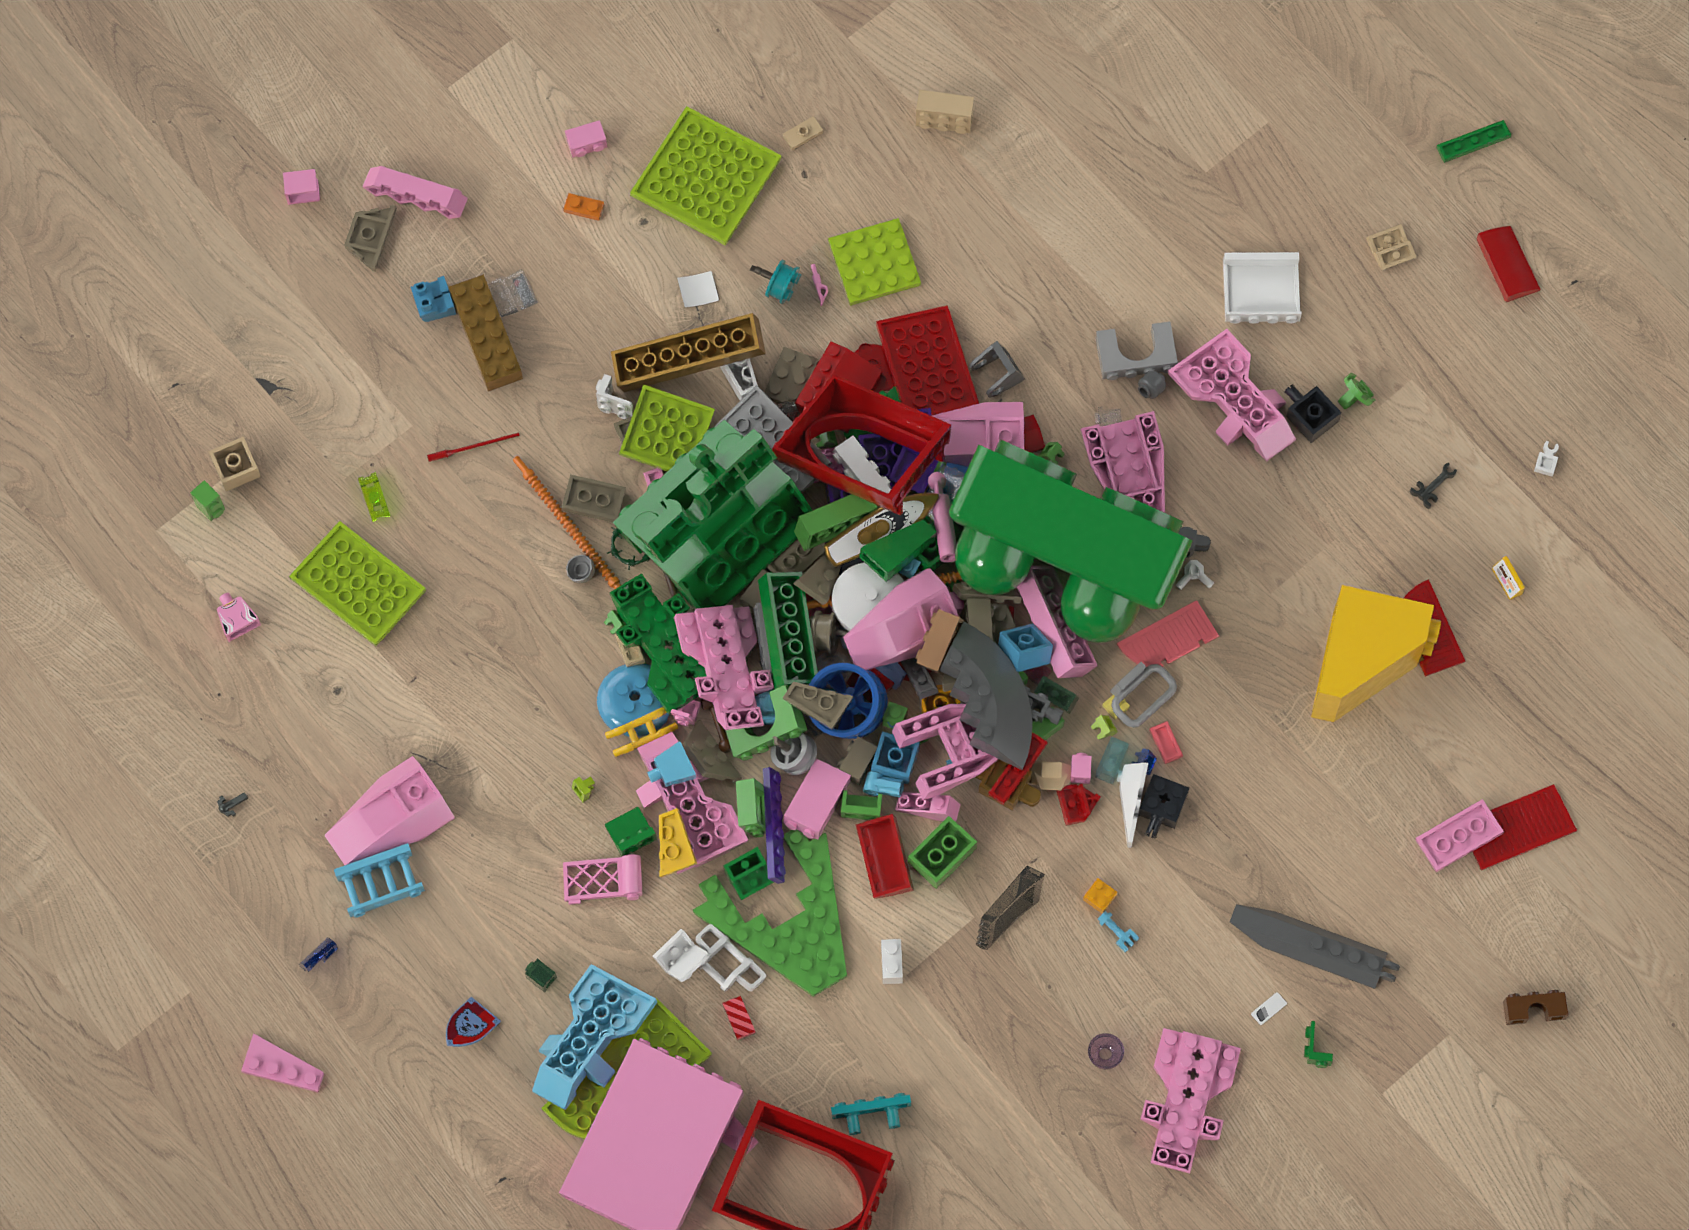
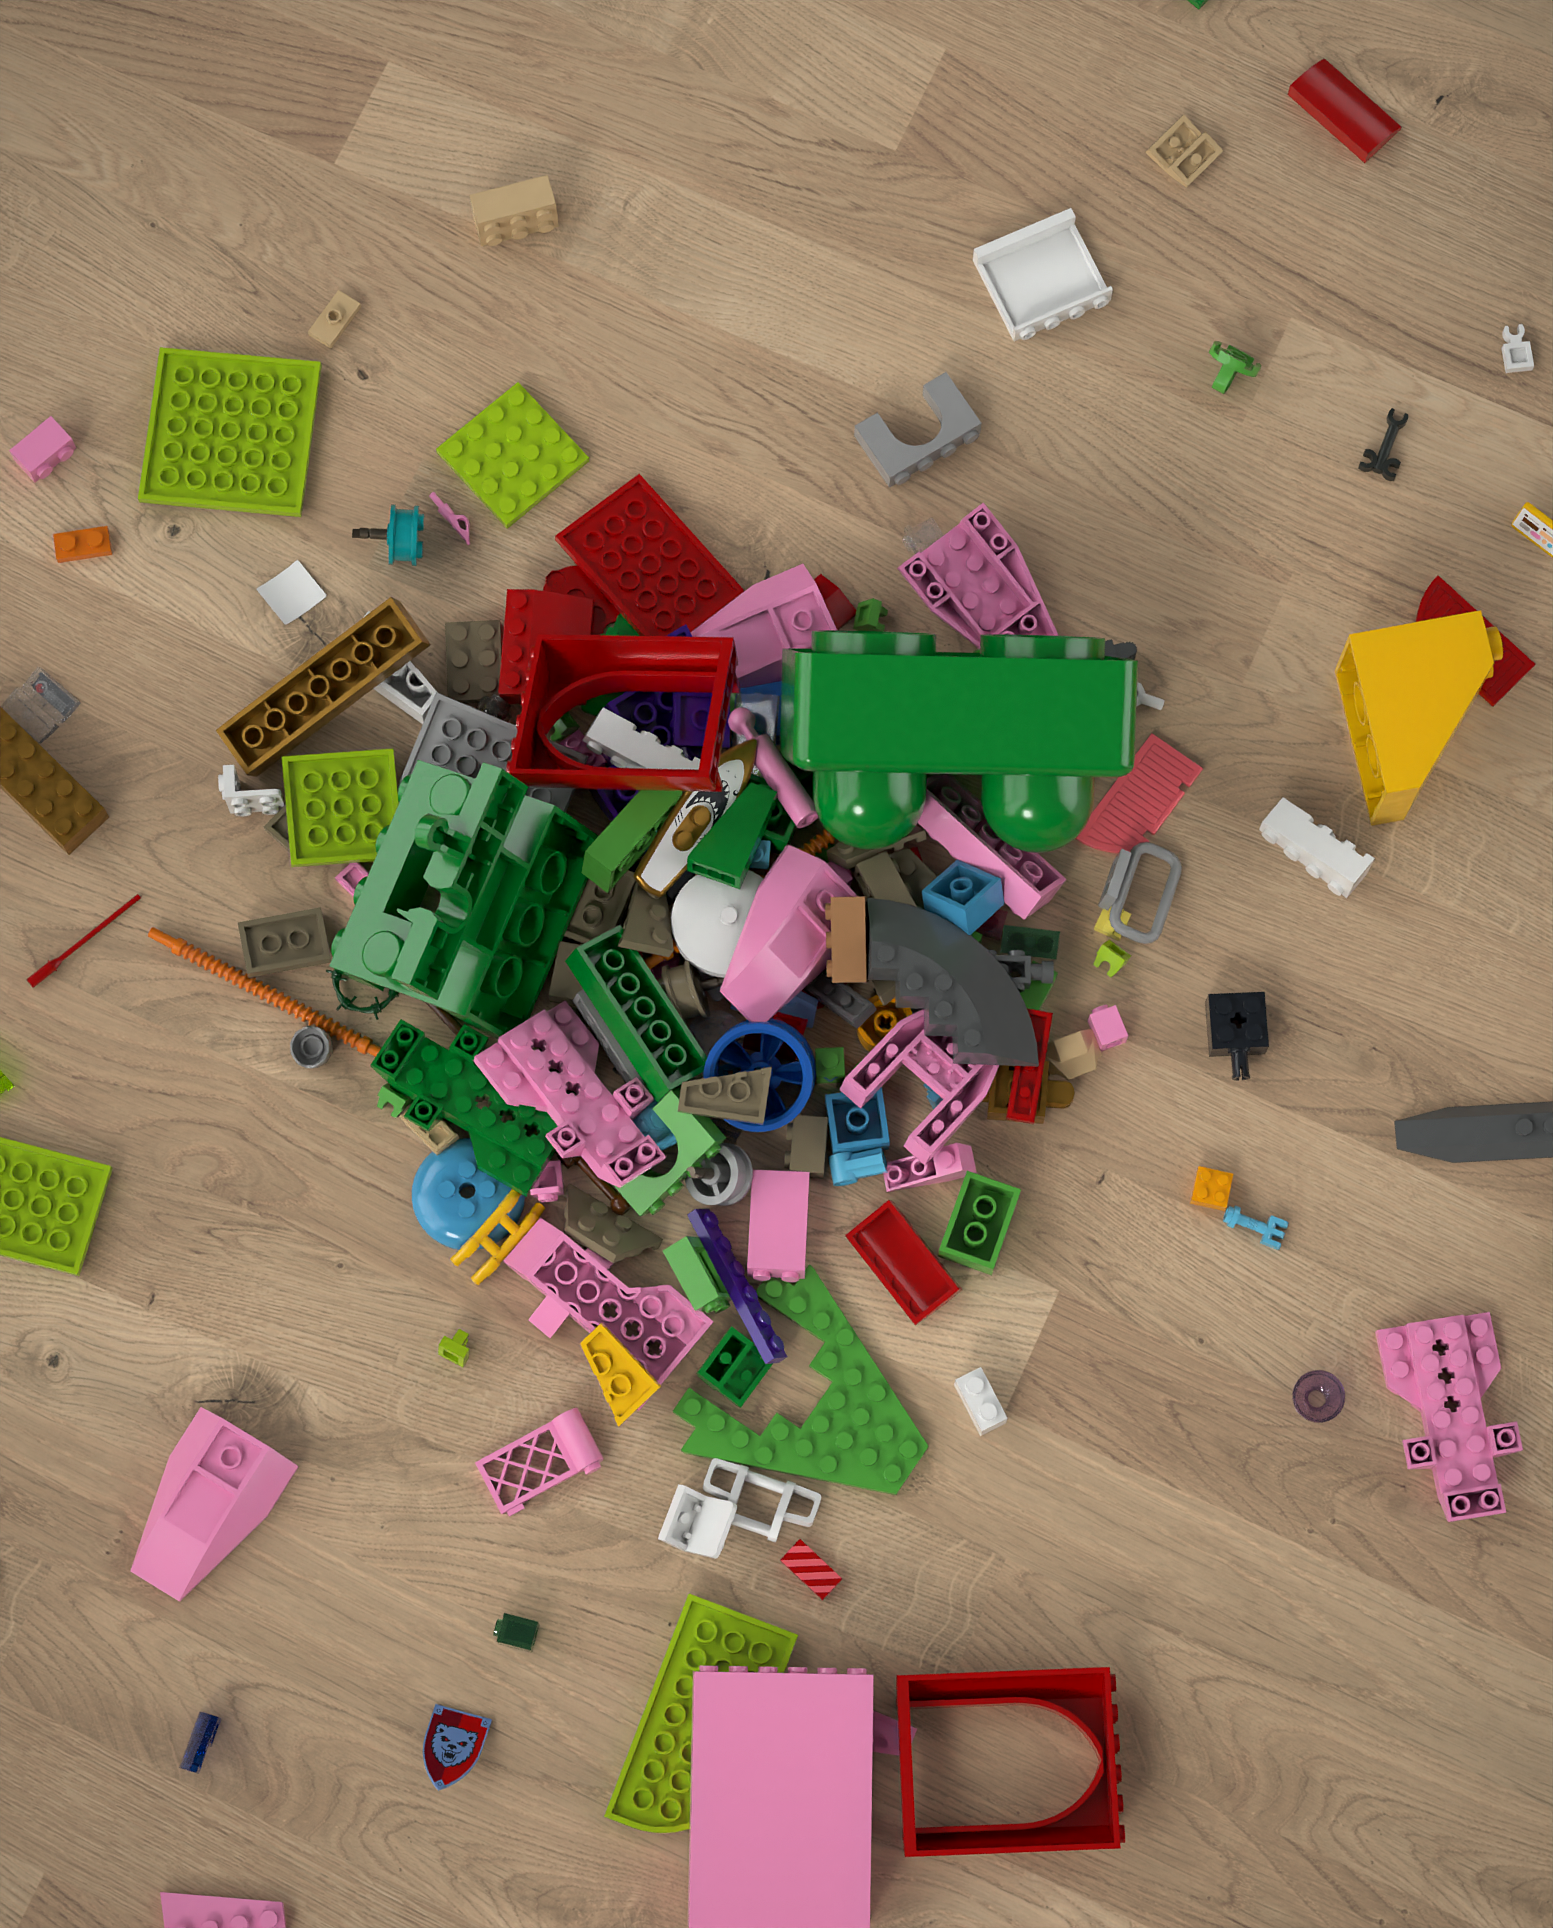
camera: 25 degrees left, 5 degrees up
(365, 867) = (207, 1592): medium azure fence -> none
(579, 1052) = (620, 1718): medium azure piece -> none
(630, 831) = (547, 1379): green bracket -> none
(672, 766) = (568, 1268): medium azure torso -> none
(861, 806) = (841, 1207): bright green panel -> none
(879, 1104) = (1023, 1630): teal plate -> none
(1010, 379) = (730, 514): dark grey hose -> none
(1012, 904) = (1115, 1238): clear smoke windscreen -> none
(1076, 803) = (1123, 1076): red slope -> none
(1112, 760) = (1143, 998): clear light blue brick -> none
(1131, 789) = (1185, 1022): white wedge -> none
(1146, 756) = (1188, 980): clear blue tile -> none
(1151, 385) = (960, 467): dark grey head -> none
(1166, 742) = (1200, 942): coral tile -> none
(1247, 410) = (1103, 447): bright pink piece -> none
(1266, 714) = (1316, 848): none -> white wedge
(1269, 1008) = (1499, 1241): white sticker -> none
(1304, 409) = (1174, 414): black brick -> none

